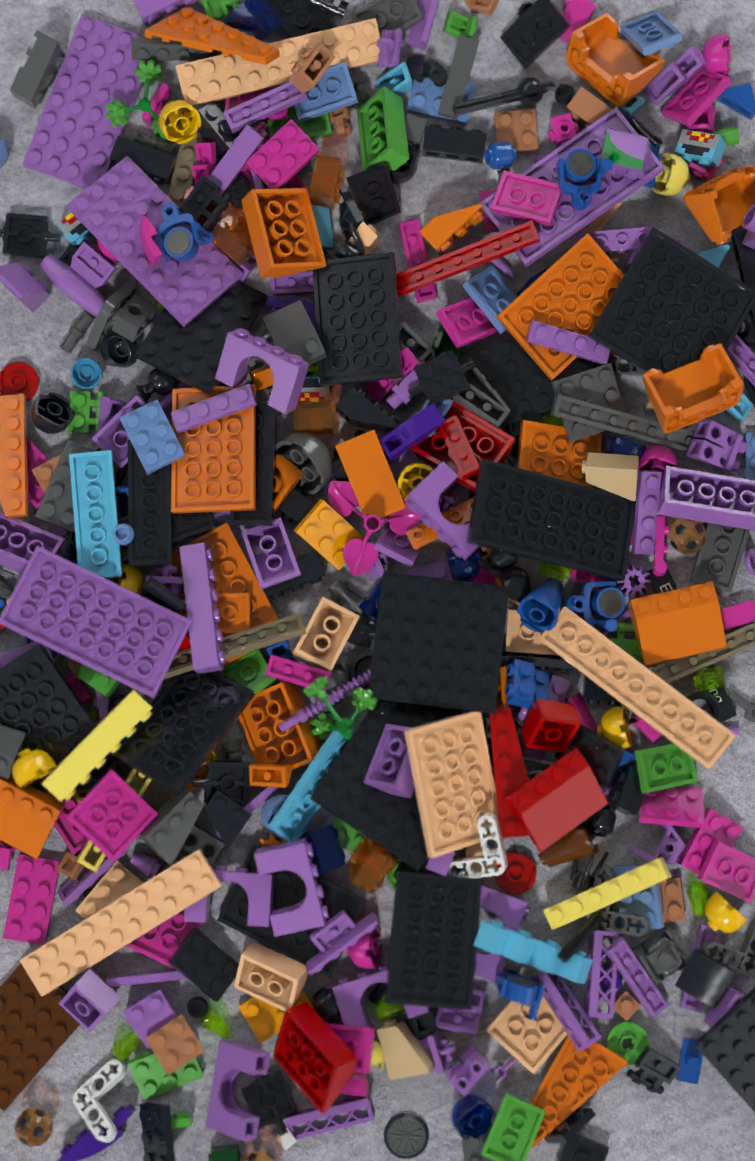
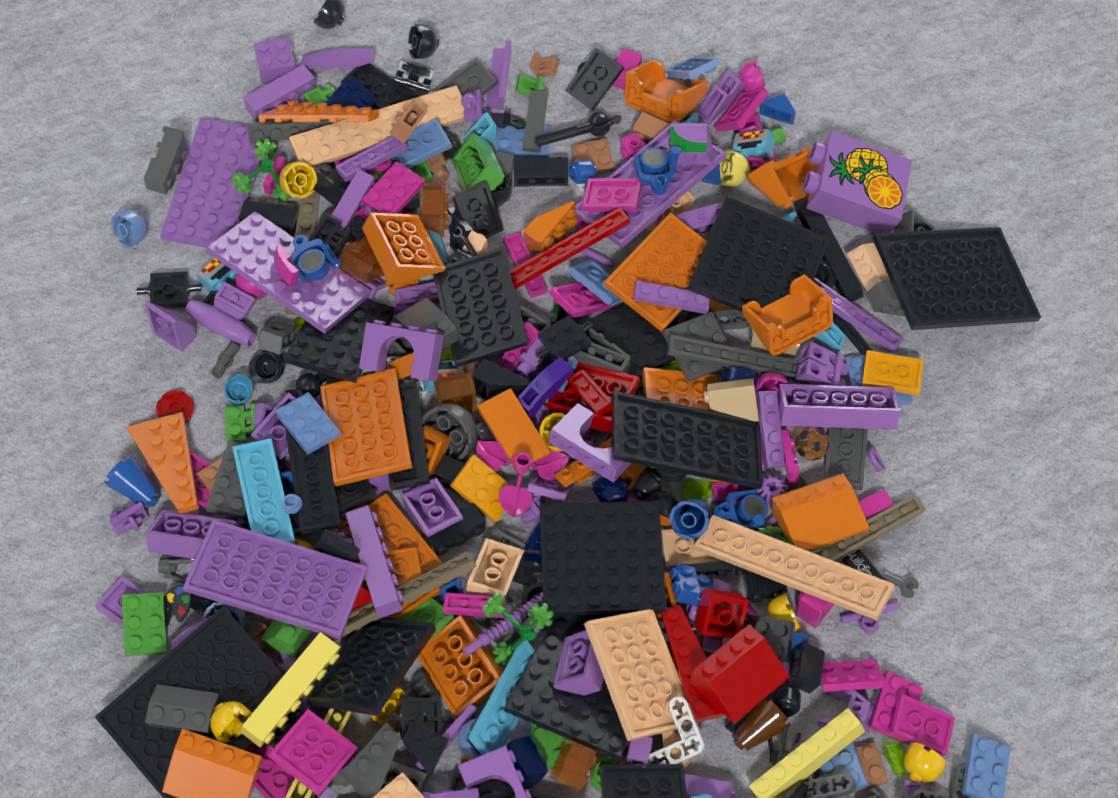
camera: 15 degrees left, 25 degrees down
(51, 413) = (210, 425): black cylinder -> none
(106, 314) = (250, 339): dark grey beam -> none
(205, 160) = (323, 207): dark pink slope -> none
(214, 408) = (361, 392): medium lavender plate -> none
(270, 774) = (461, 702): orange slope -> none
(518, 875) = (715, 763): red tile -> none
(564, 94) = (628, 123): black plate -> none
(664, 767) = (837, 640): bright green plate -> none
(709, 678) = (860, 560): clear neon green bracket -> none

